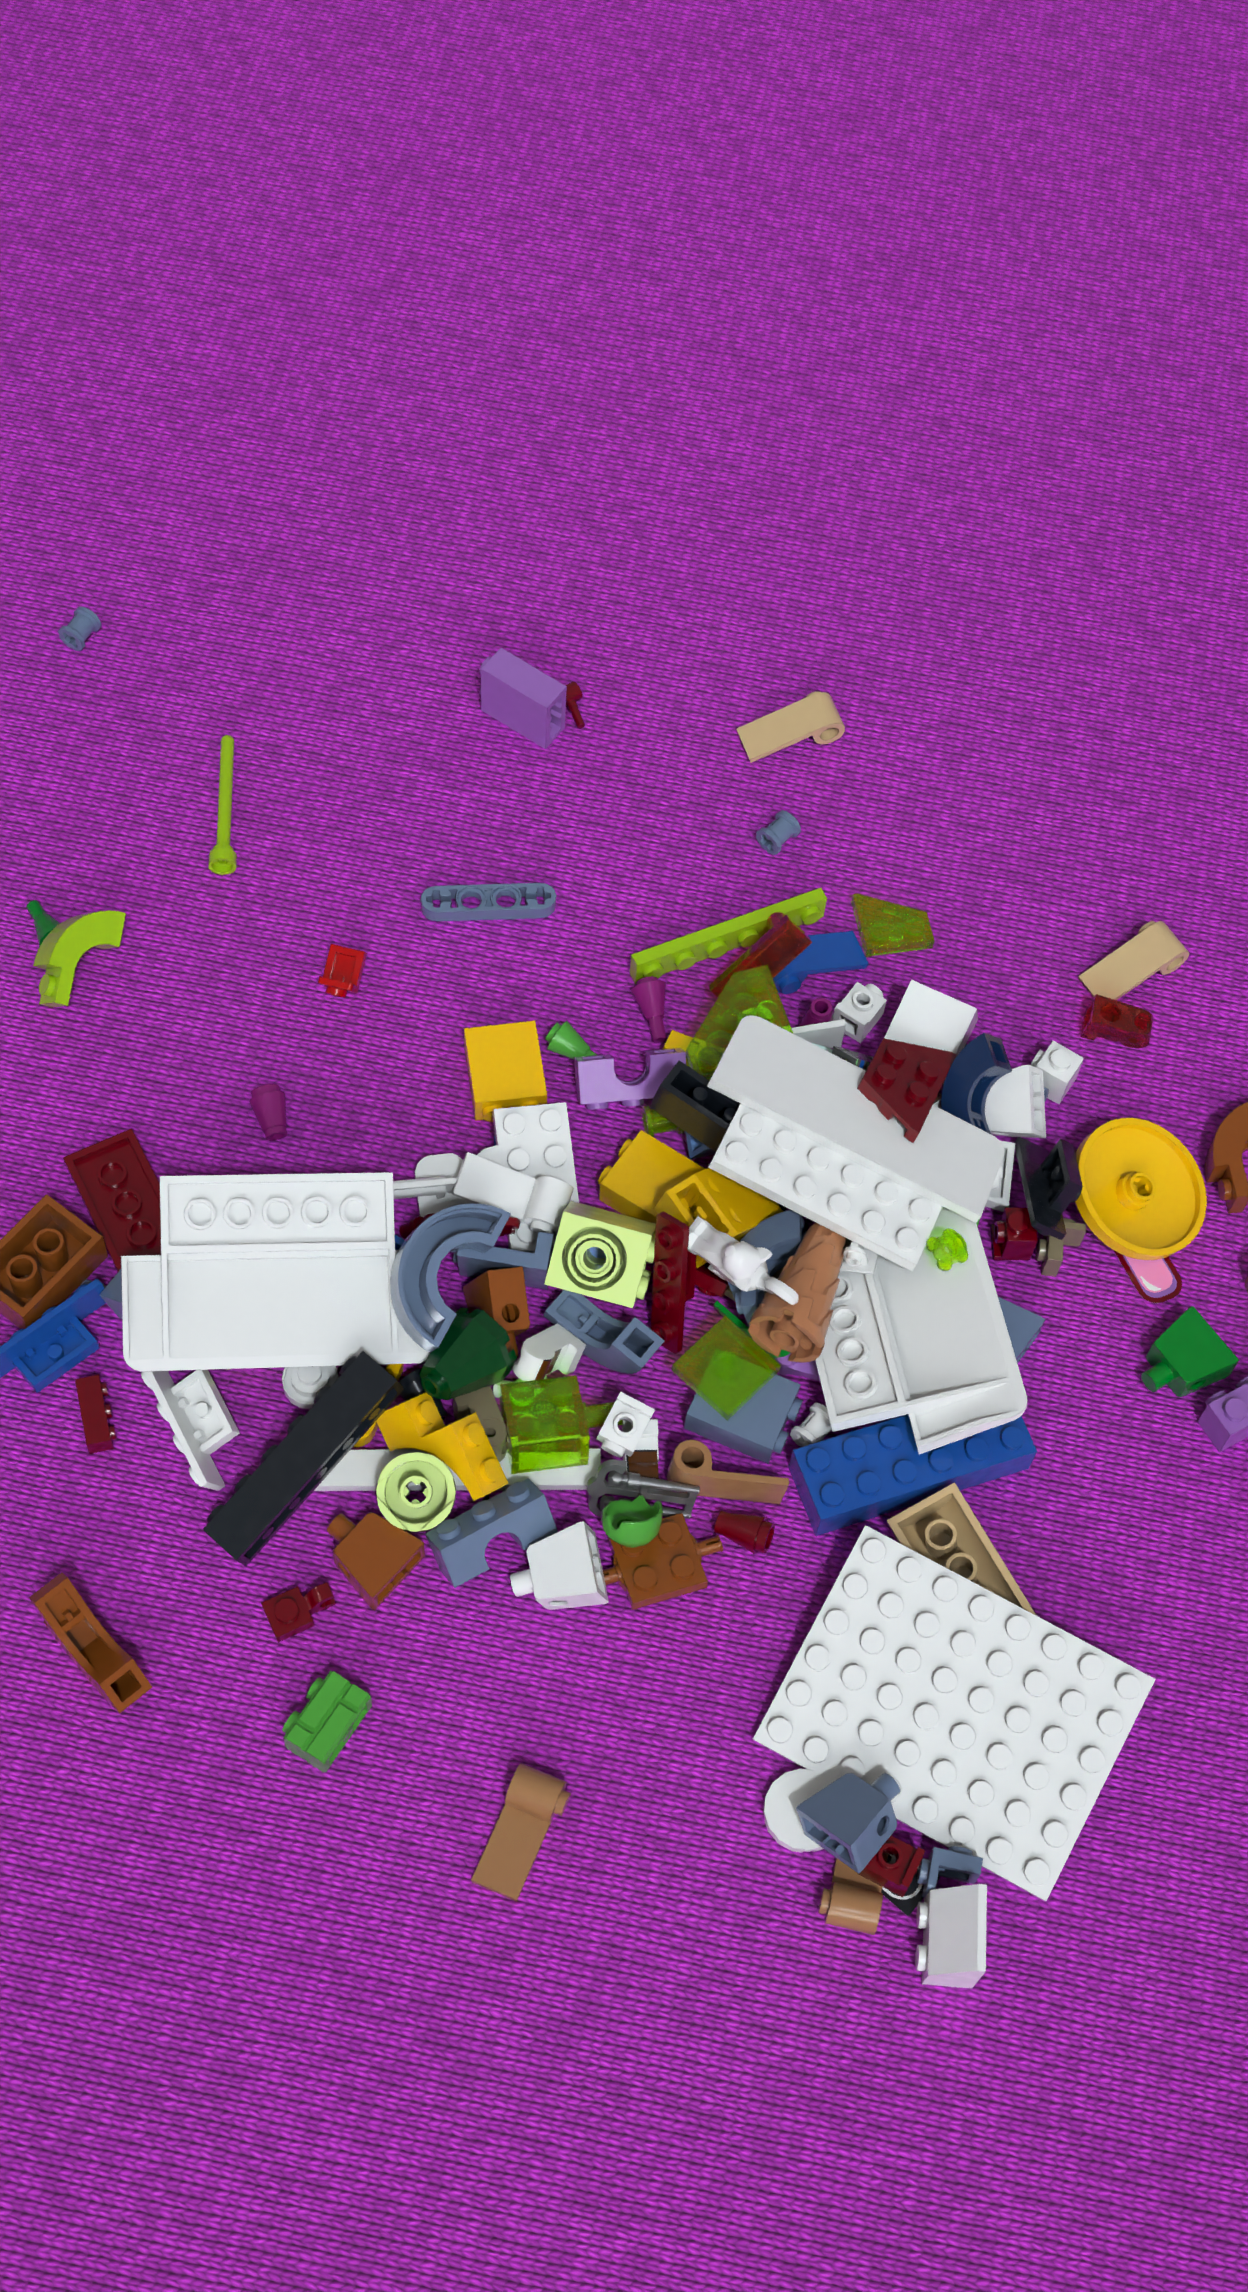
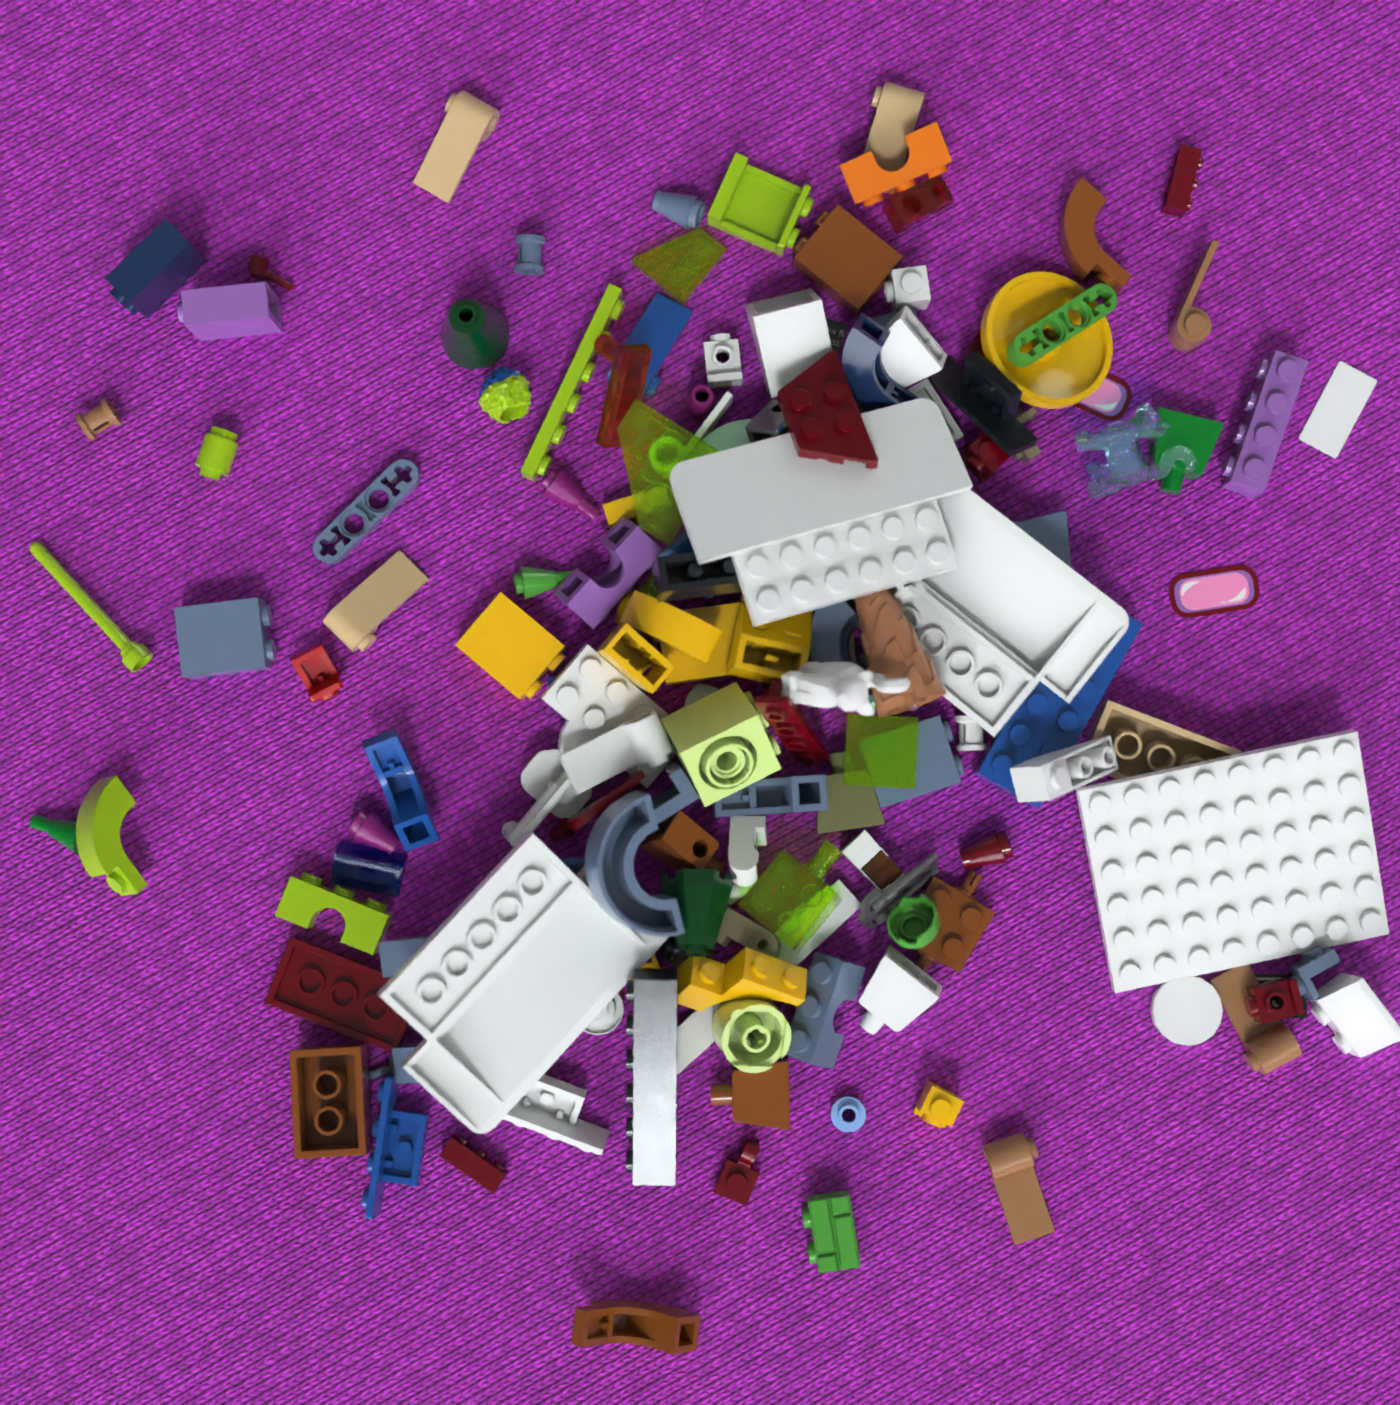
camera: 35 degrees left, 25 degrees up
(171, 1116) = (307, 898): none -> lime arch
(238, 1137) = (368, 868): none -> clear blue slope
(298, 896) = (224, 638): none -> sand blue brick
(325, 1095) = (402, 789): none -> blue arch
(357, 696) = (98, 419): none -> medium nougat bush
(409, 956) = (369, 604): none -> tan door
(419, 779) = (217, 453): none -> lime brick
(435, 1651) = (848, 1103): none -> light blue plate
(491, 625) = (154, 270): none -> dark blue brick
(514, 1695) = (938, 1106): none -> yellow brick
(593, 1134) = (633, 655): none -> yellow torso
(627, 1409) = (844, 853): white brick -> none
(642, 1138) = (668, 625): none -> yellow arch
(663, 1391) = (847, 805): none -> olive torso
(669, 903) = (505, 395): none -> lime piece
(687, 844) = (474, 334): none -> dark green cone
(693, 1466) = (919, 842): medium nougat door -> none
(851, 1818) = (1232, 999): sand blue torso -> none
(868, 1496) = (1063, 770): none -> white slope
(924, 889) = (680, 208): none -> sand blue cone
(955, 1244) = (977, 528): clear neon green plate -> none
(986, 932) = (759, 207): none -> lime panel
(1023, 1013) = (845, 259): none -> dark orange brick
(1123, 1495) = (1214, 591): none -> sticker
(1133, 1315) = (1124, 456): none -> clear light blue animal
(1150, 988) = (926, 155): none -> orange arch
(1160, 1182) = (1061, 324): none -> bright green beam

